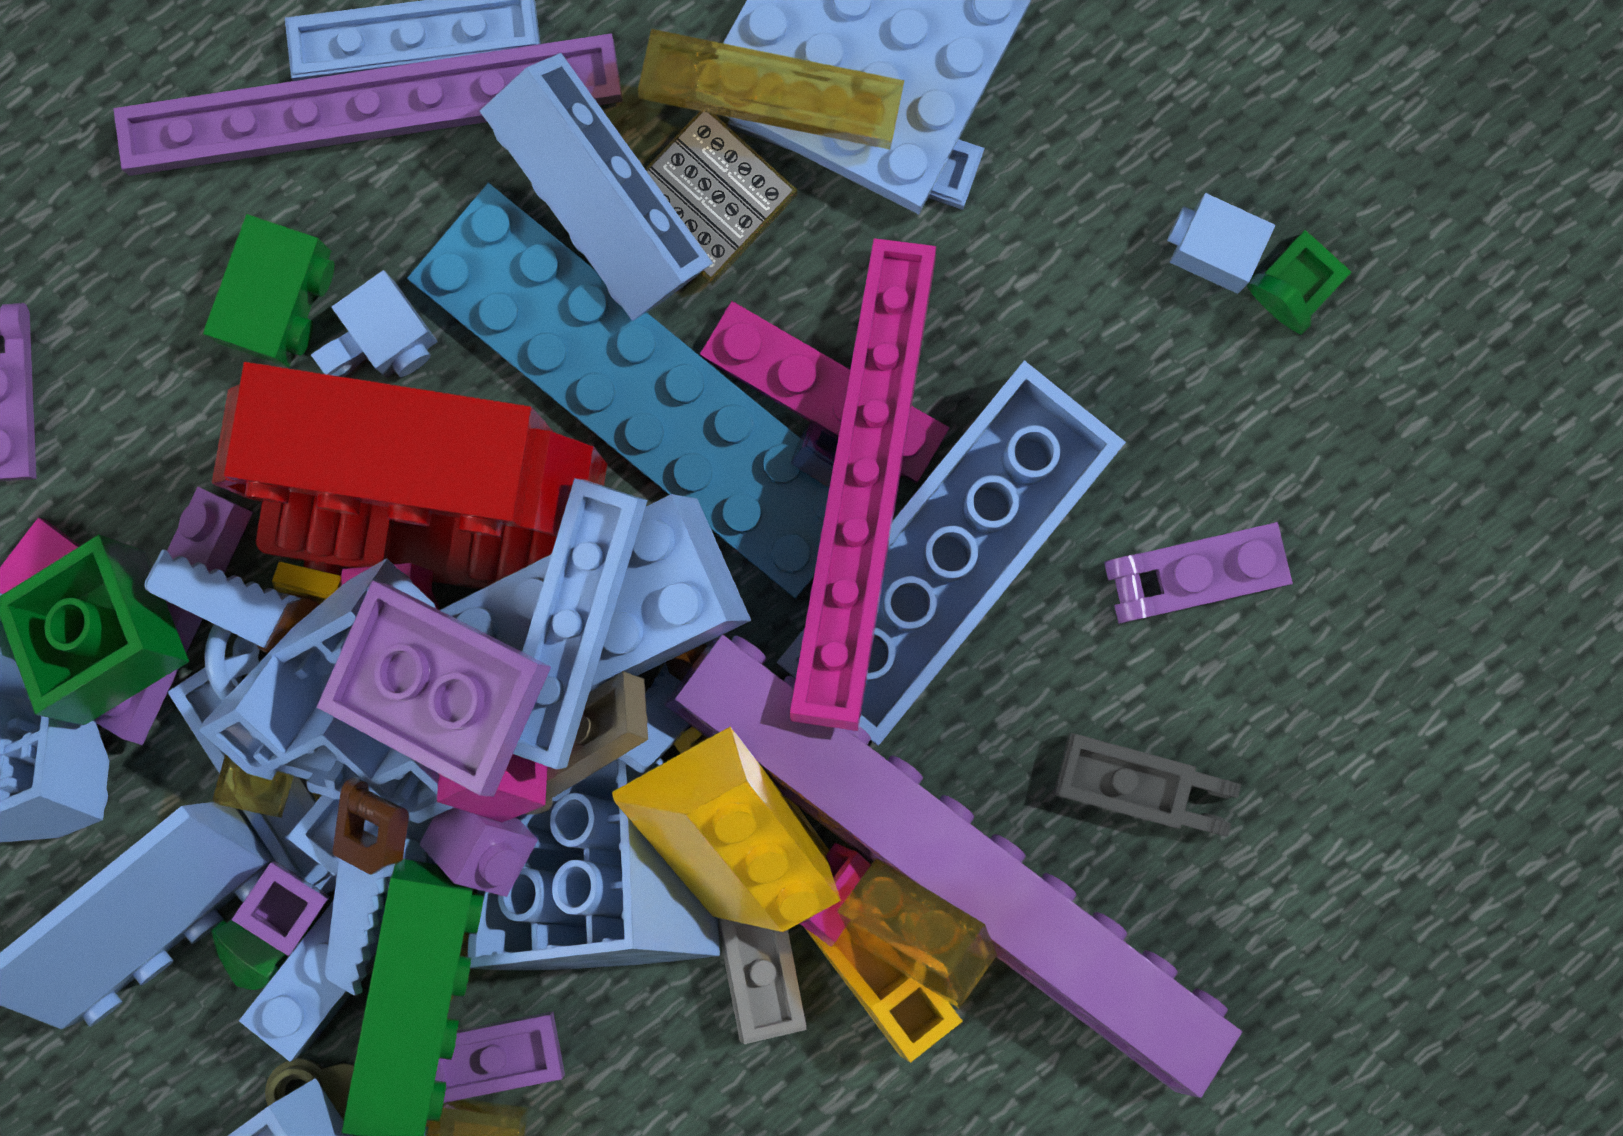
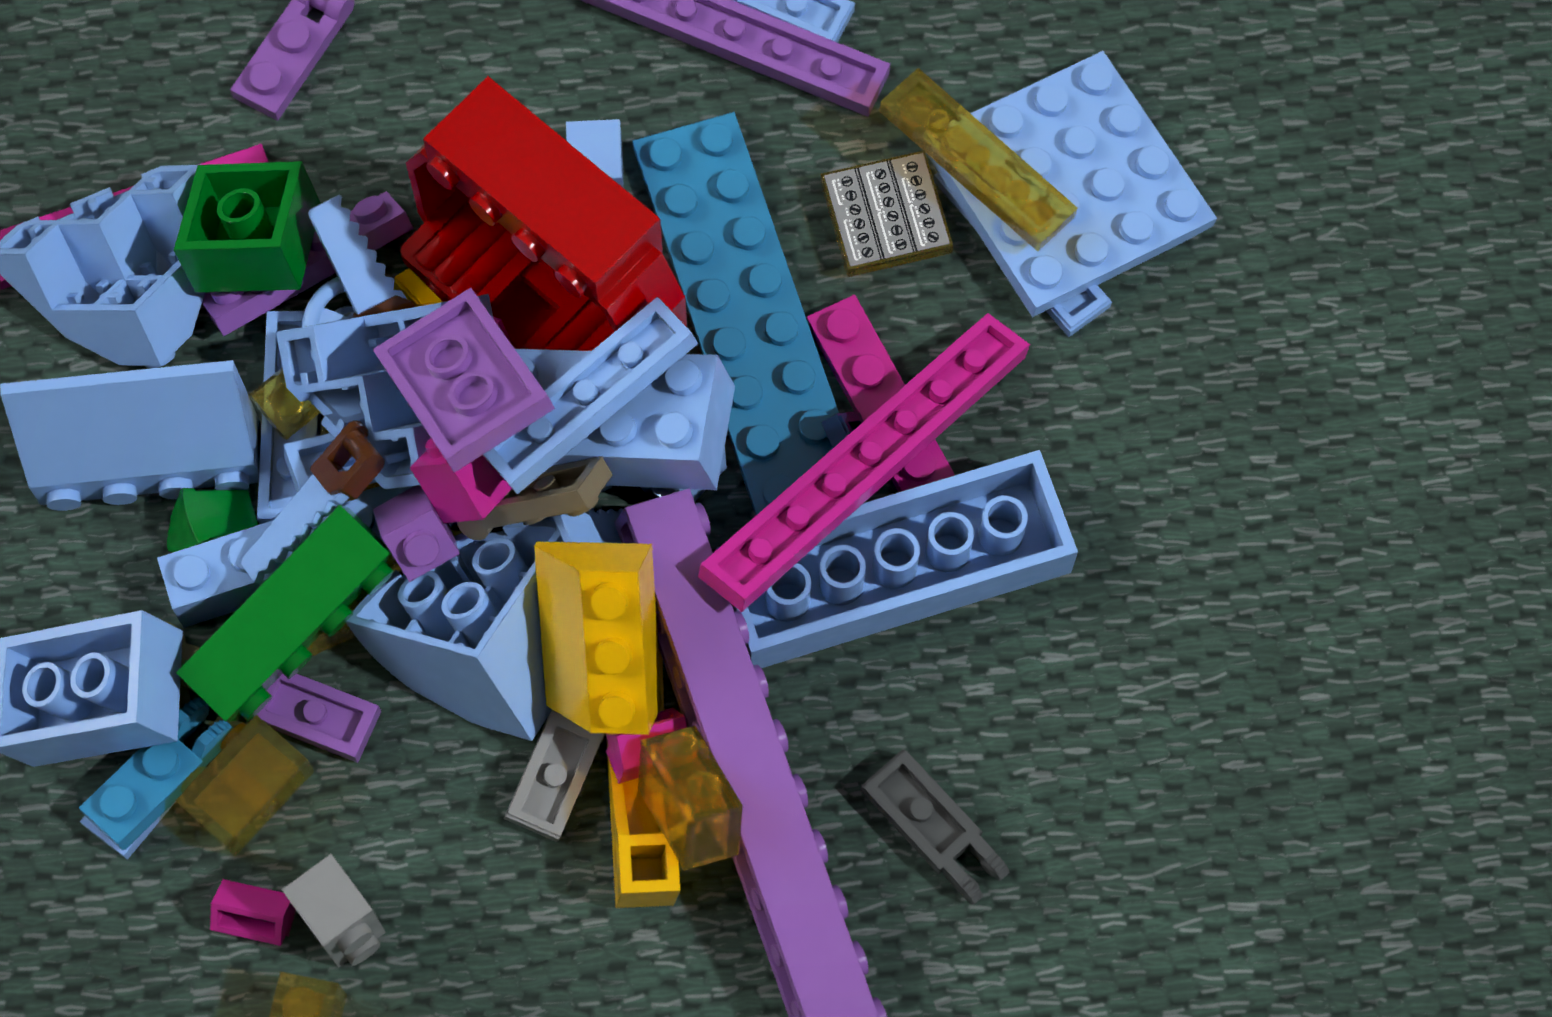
camera: 30 degrees right, 15 degrees down
(270, 291) = (542, 77): green brick -> none
(280, 908) = (244, 493): medium lavender brick -> none
(595, 185) = (808, 153): light blue brick -> none
(1201, 572) = (1078, 697): medium lavender plate -> none
(1219, 242) = (1245, 468): light blue brick -> none
(1298, 282) = (1290, 536): green tile -> none

